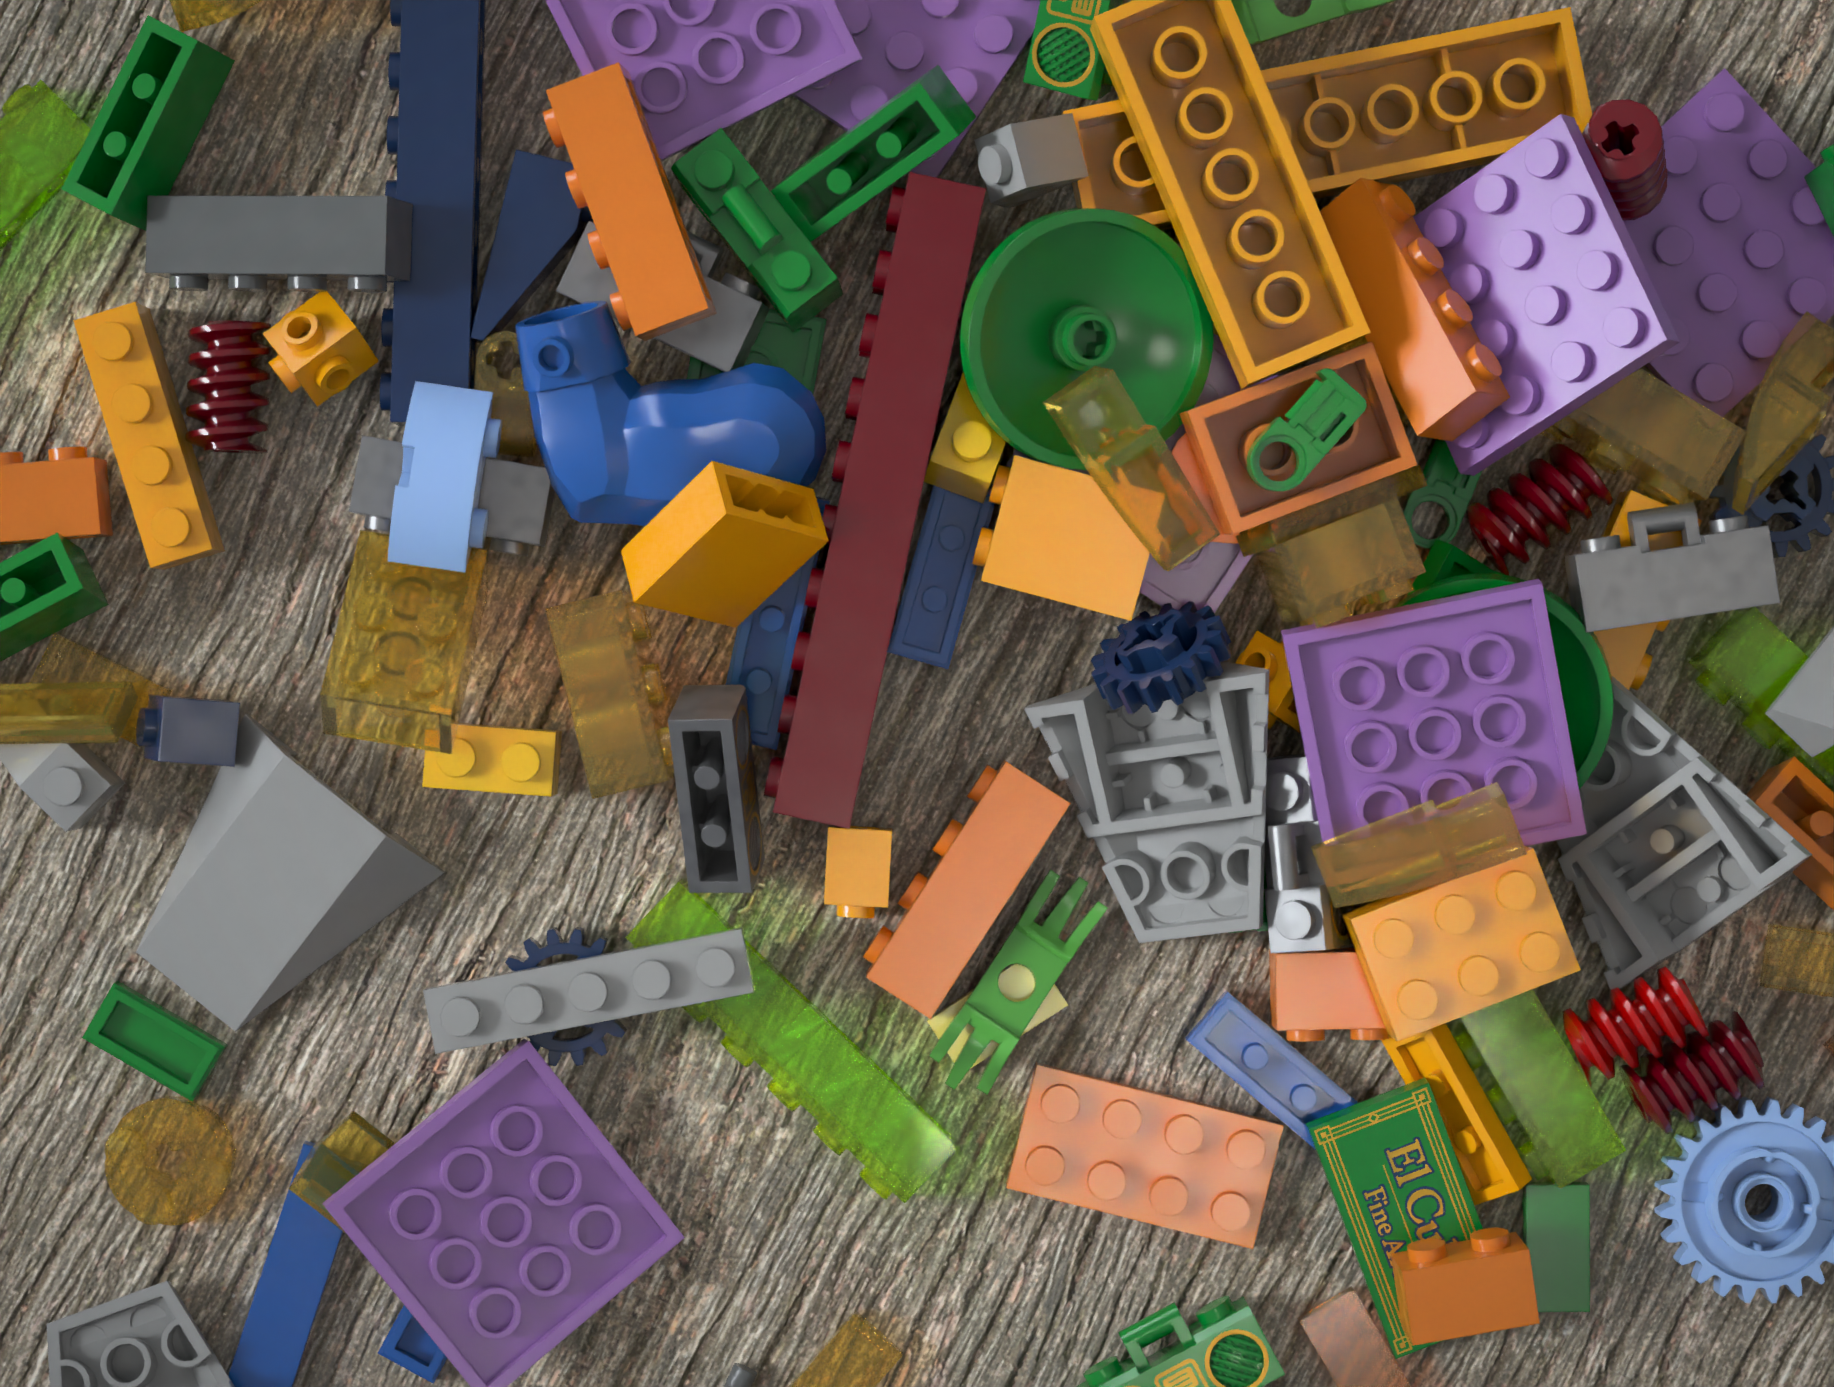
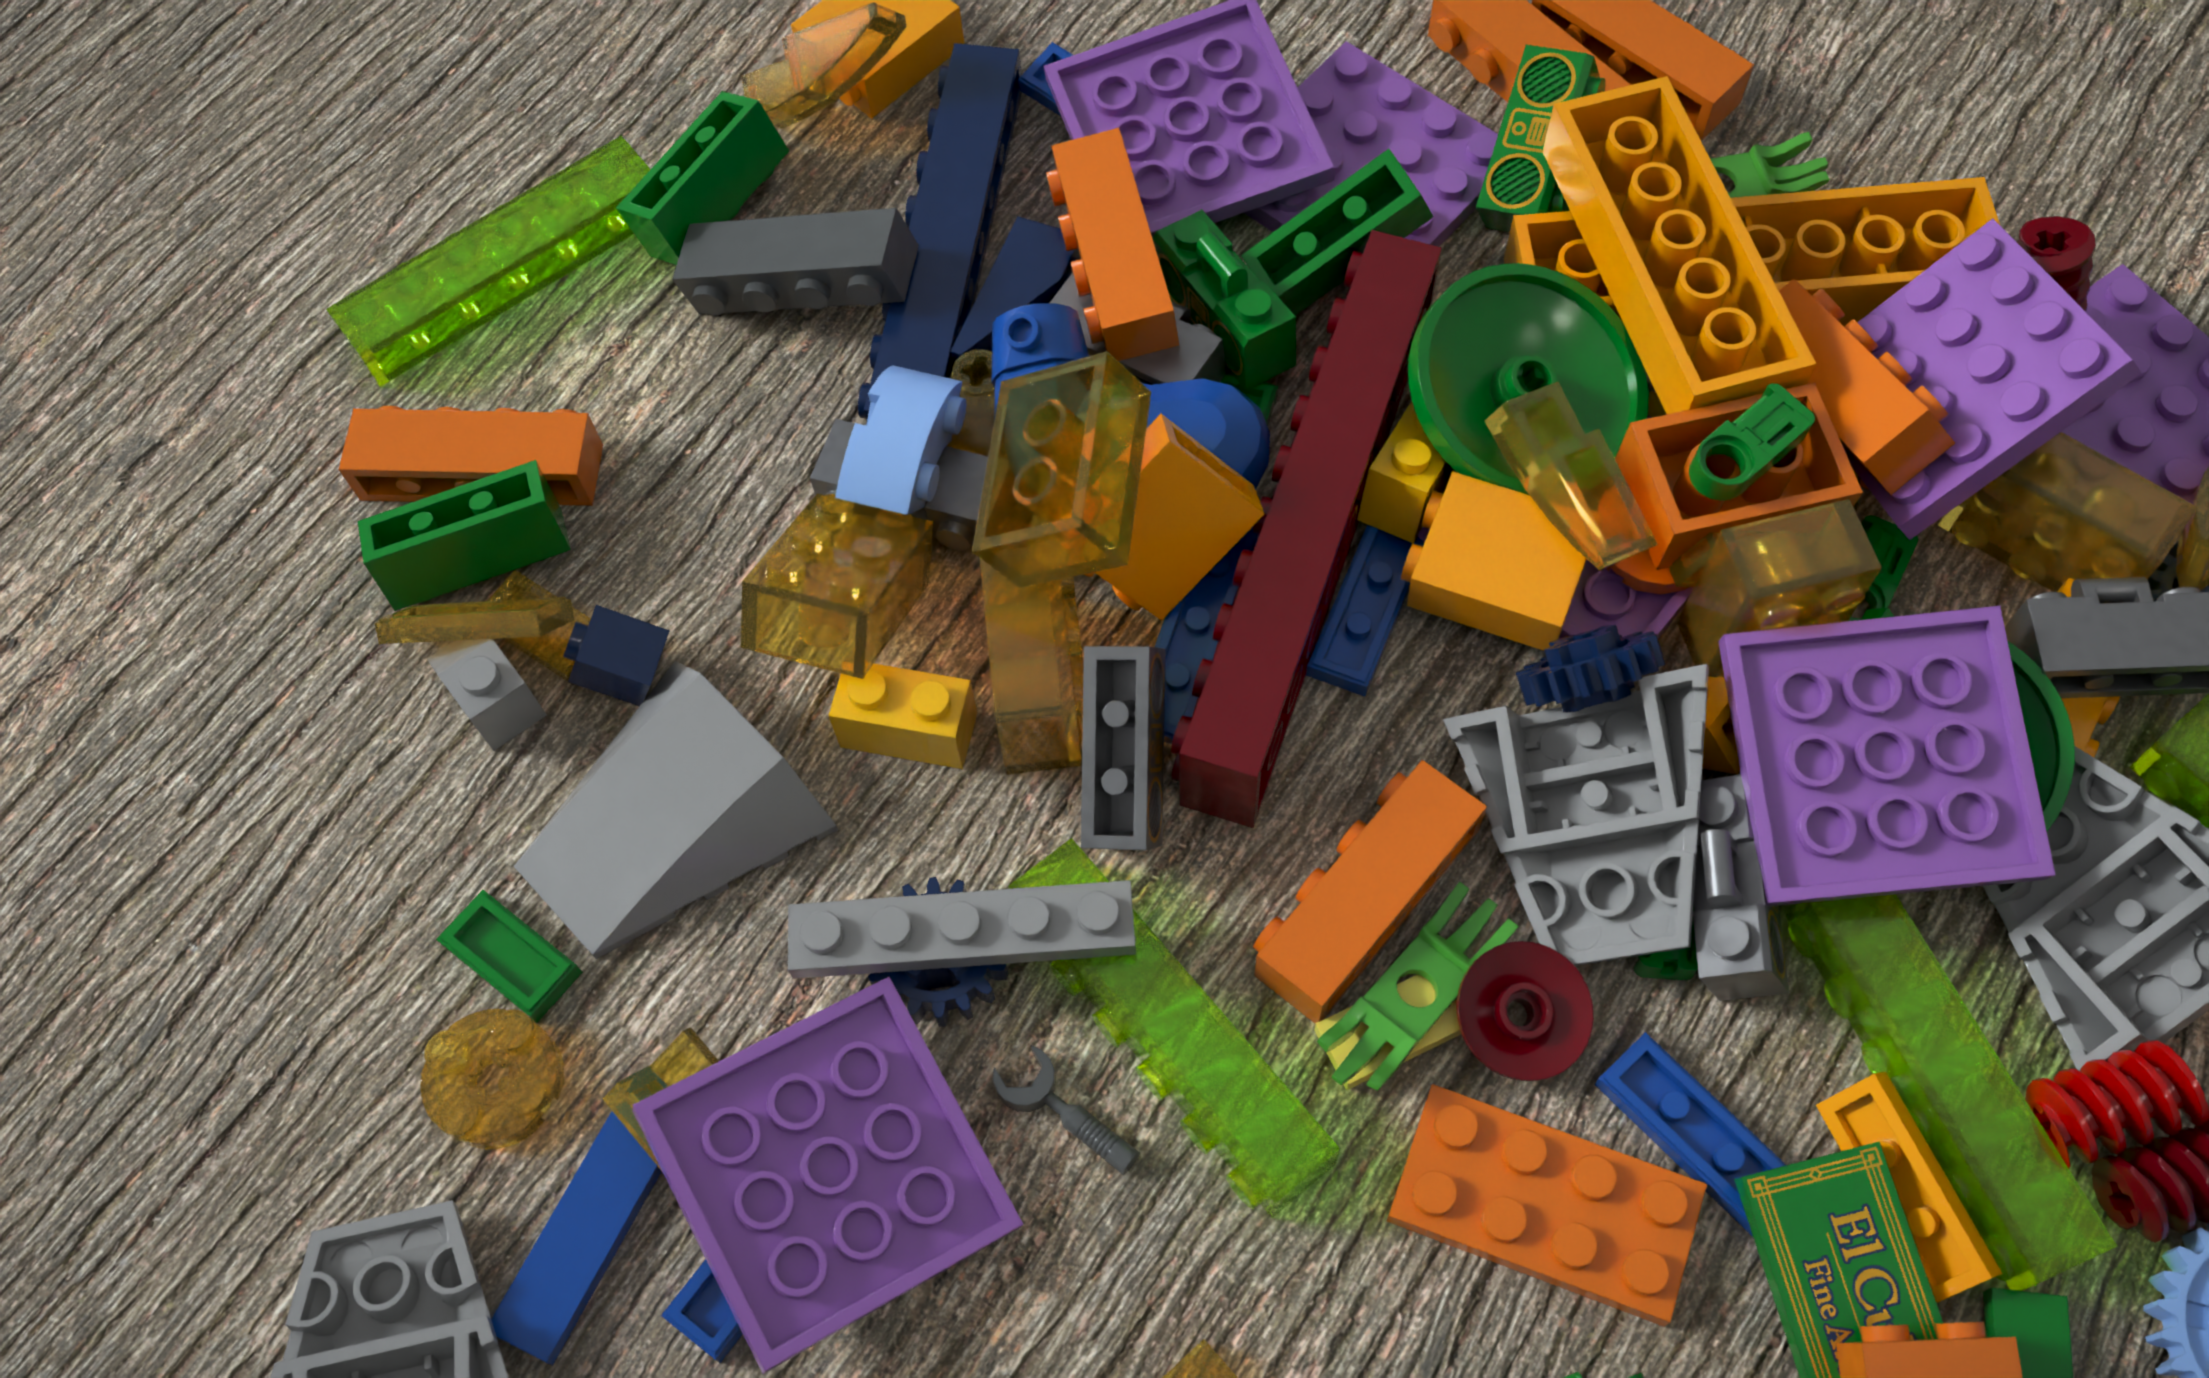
camera: 15 degrees right, 25 degrees down
(149, 435) = (643, 415): light orange brick -> none
(227, 386) = (724, 380): dark red piece -> none
(318, 349) = (812, 355): light orange brick -> none
(623, 553) = (1063, 471): none -> clear yellow brick
(715, 1130) = (1073, 1117): none -> dark grey piece
(857, 870) = (1257, 858): light orange brick -> none
(1030, 159) = (1481, 235): light grey slope -> none
(1136, 1010) = (1555, 1003): none -> dark red dish
(1322, 993) = (1769, 1040): orange brick -> none
(1420, 847) = (1877, 855): clear yellow slope -> none
(1460, 945) = (1919, 974): light orange brick -> none
(1535, 505) = (1984, 575): dark red piece -> none

